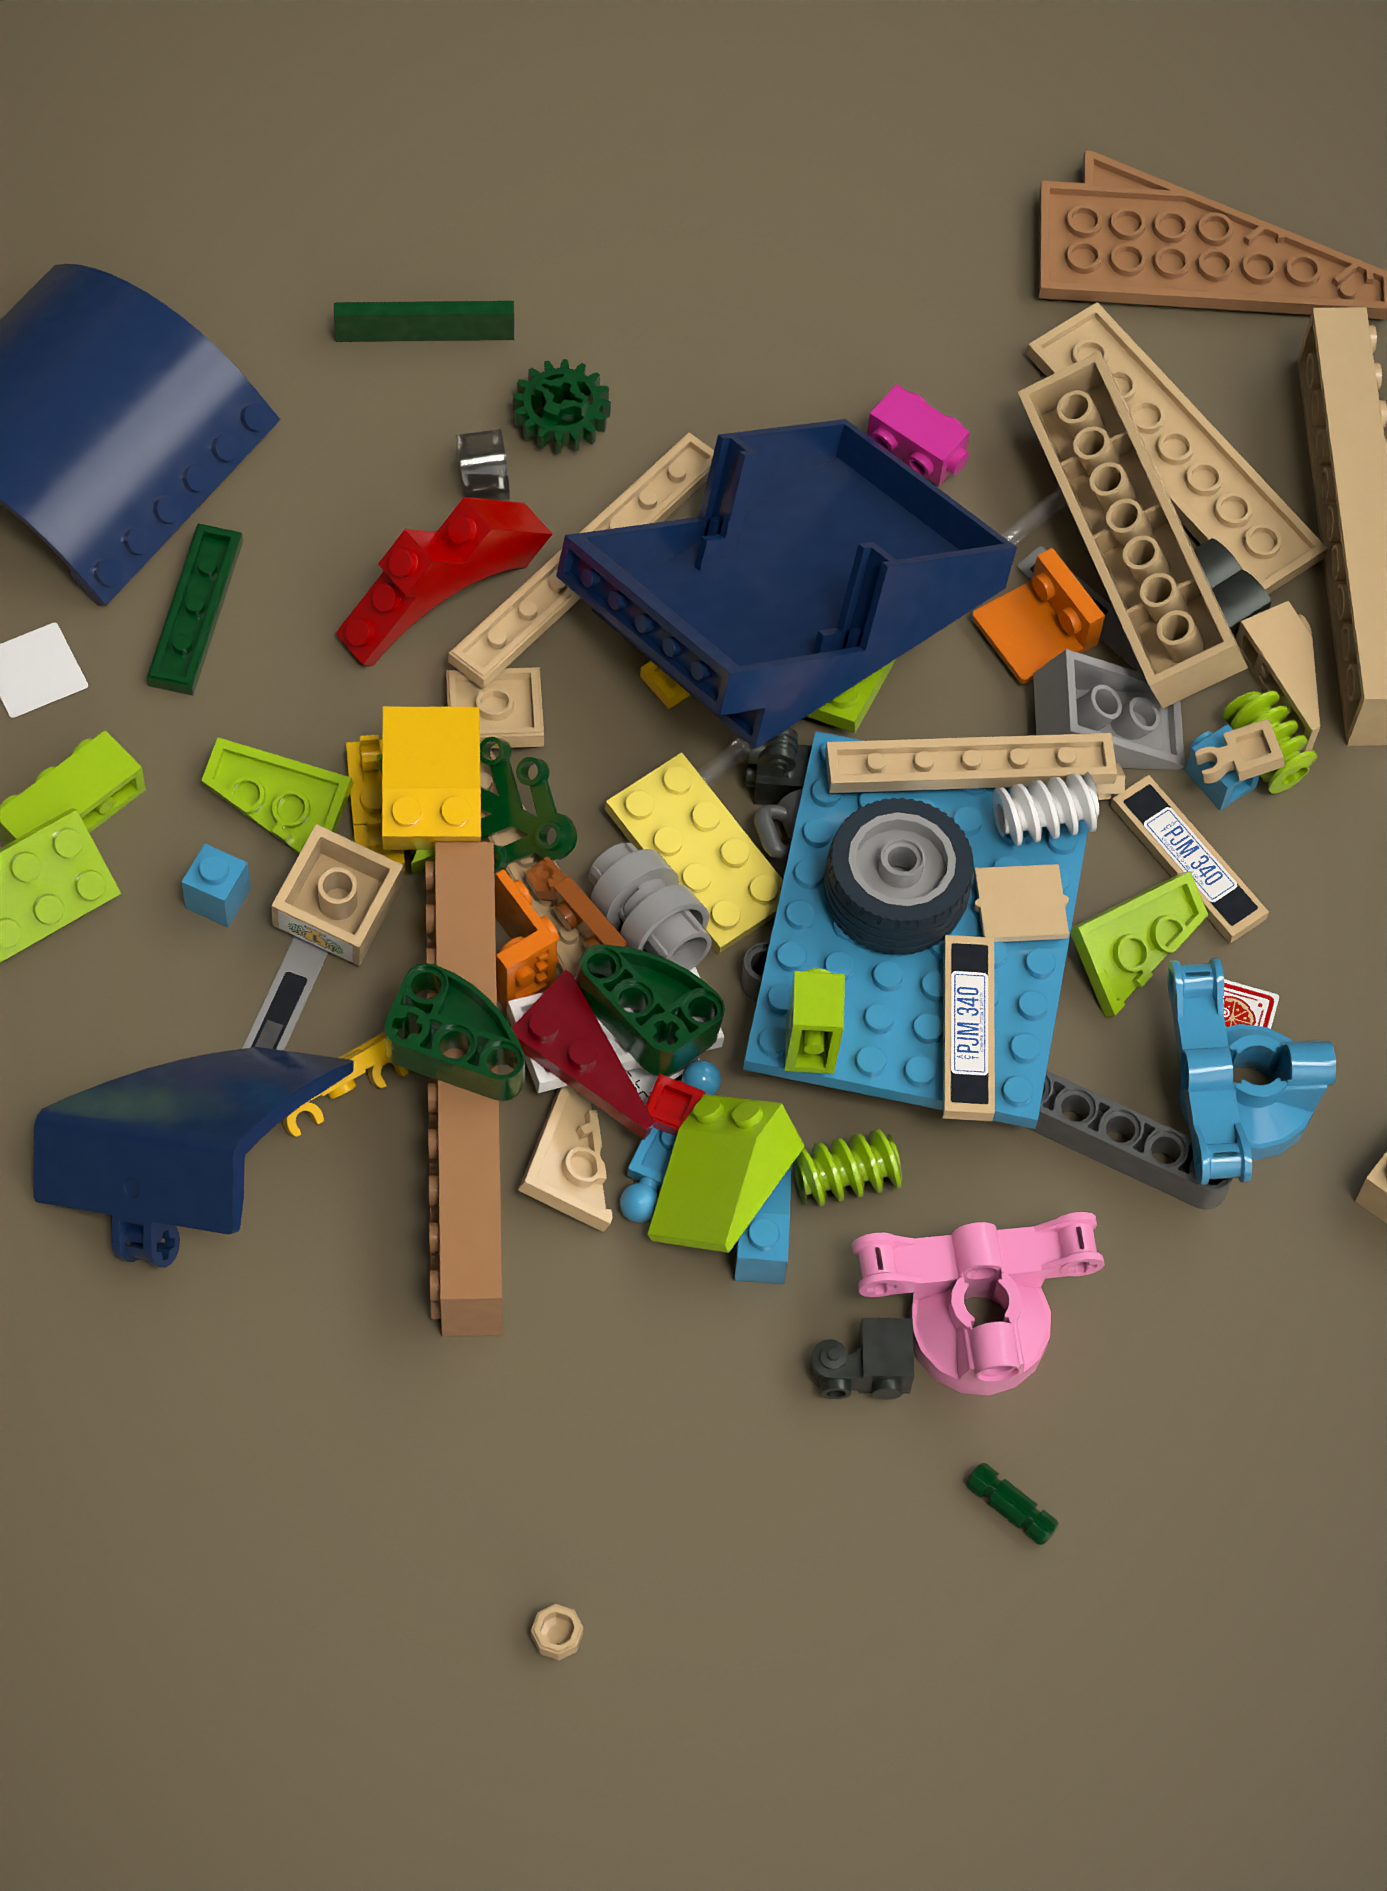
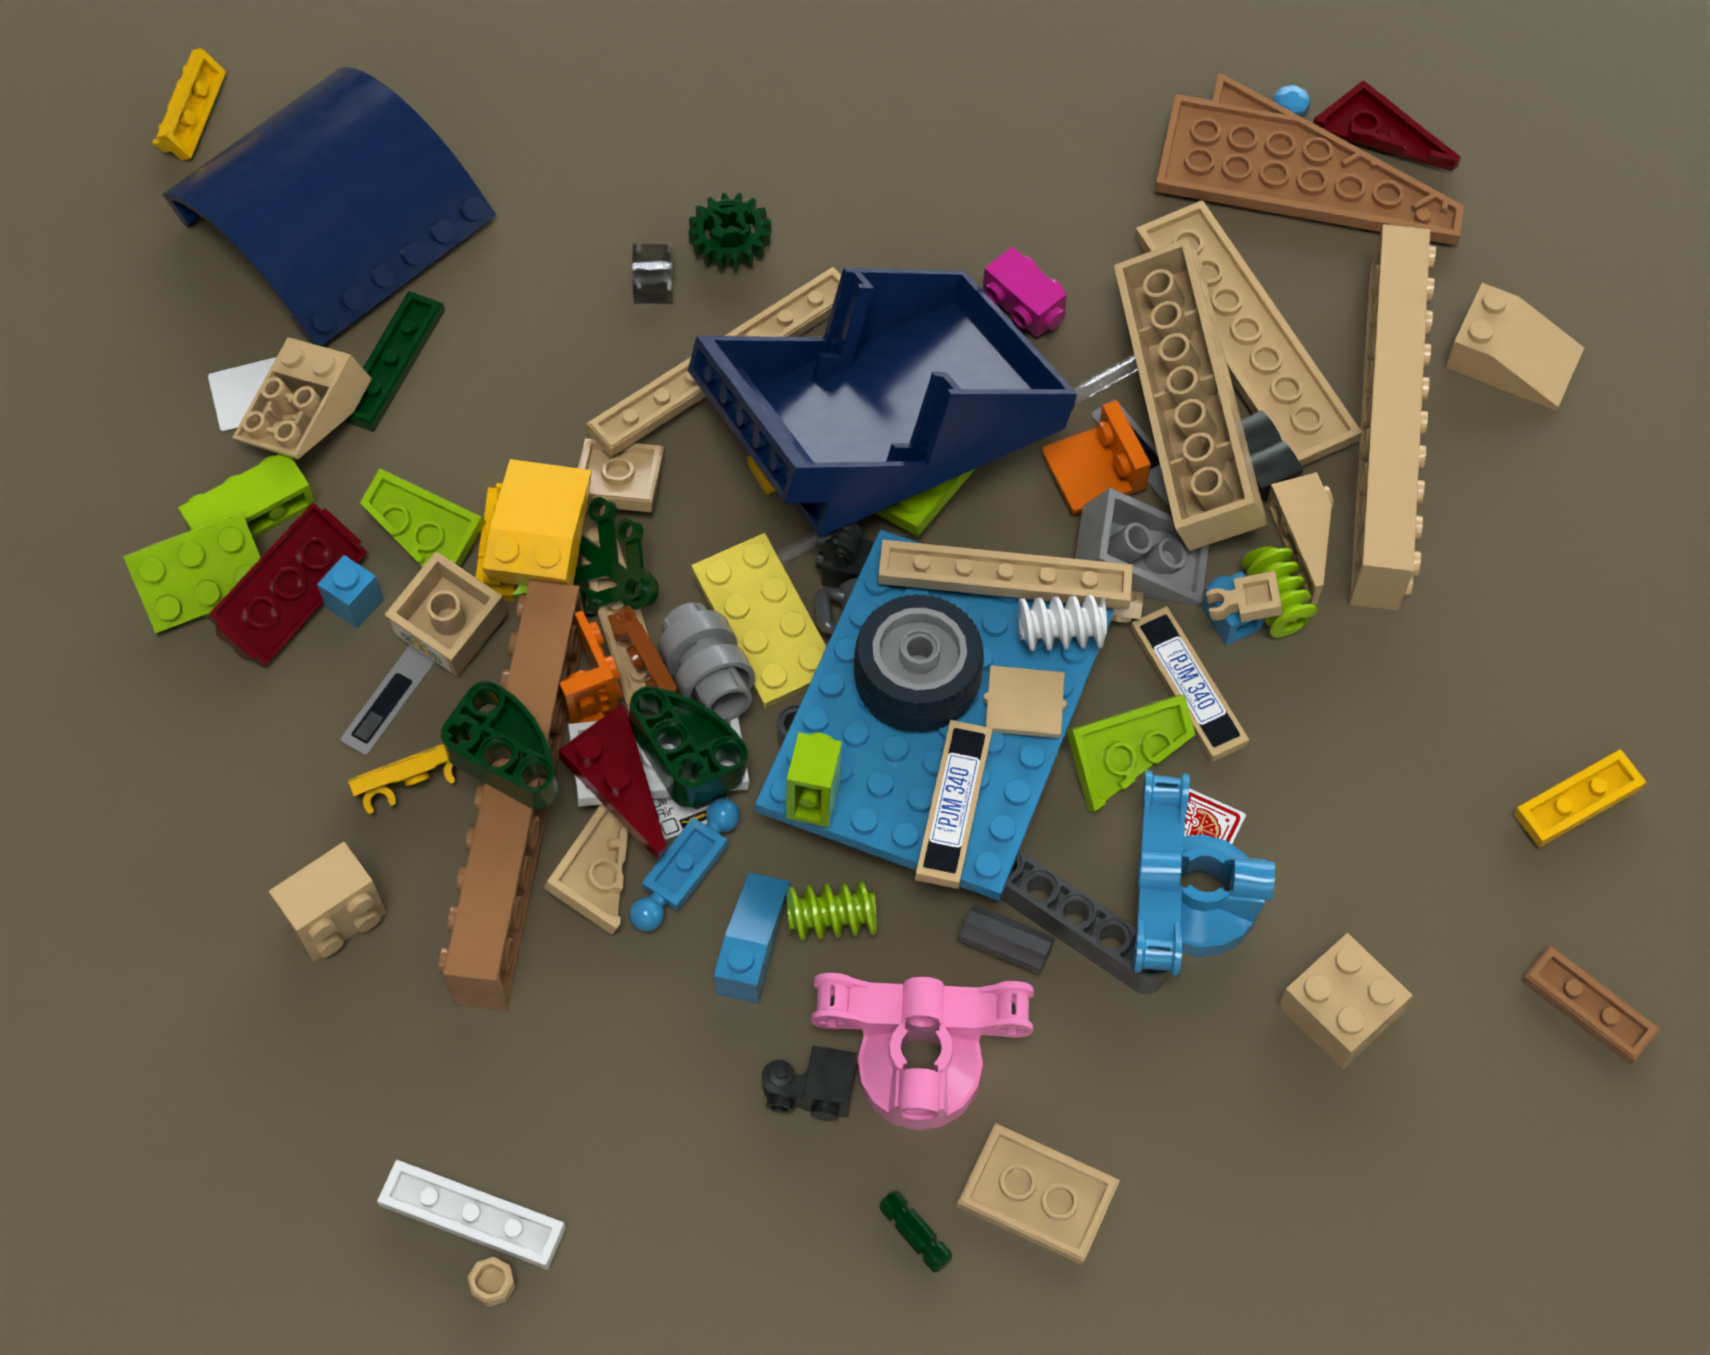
camera: 15 degrees right, 0 degrees up
(108, 667) = (302, 399): none -> tan slope
(137, 888) = (282, 585): none -> dark red brick
(171, 1142) = (242, 799): dark blue panel -> none
(281, 1242) = (328, 902): none -> tan brick
(423, 321) = (631, 148): dark green tile -> none
(431, 566) = (583, 349): red arch -> none
(517, 1562) = (471, 1214): none -> white plate
(671, 1103) = (691, 835): red tile -> none
(723, 1171) = (718, 898): lime slope -> none
(1047, 1170) = (1006, 939): none -> dark grey axle
(1137, 1442) = (1038, 1194): none -> tan tile
(1175, 170) = (1293, 99): none -> dark azure tile
(1274, 187) = (1376, 122): none -> dark red wing

